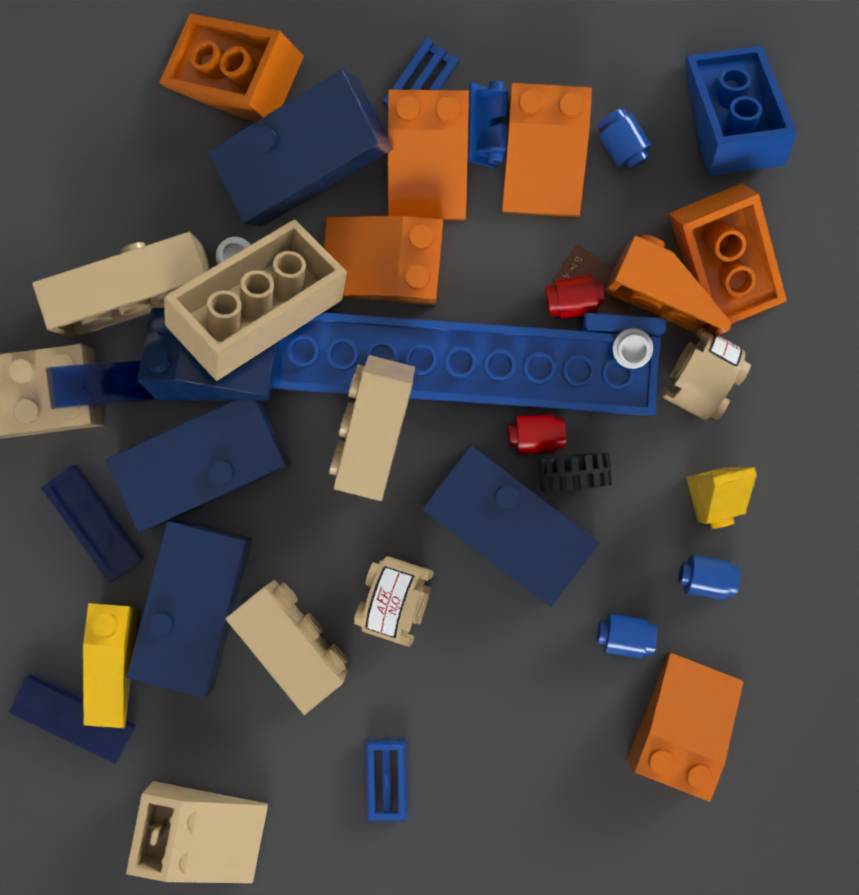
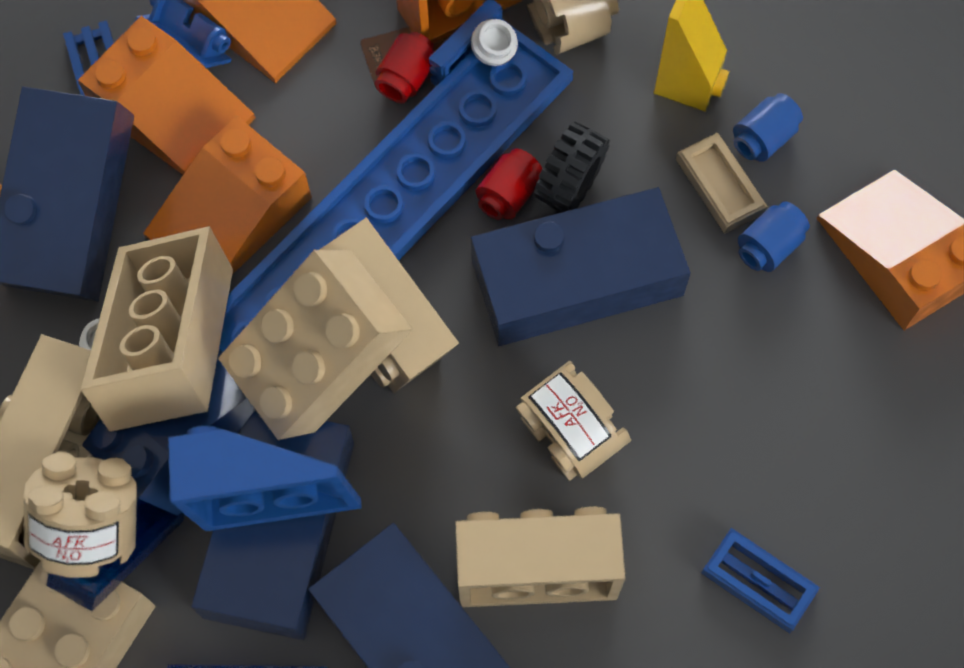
camera: 55 degrees left, 20 degrees down
(98, 355) = (80, 513): none -> tan brick
(191, 441) = (241, 481): none -> blue slope
(304, 418) = (314, 343): none -> tan brick
(647, 571) = (721, 183): none -> tan tile

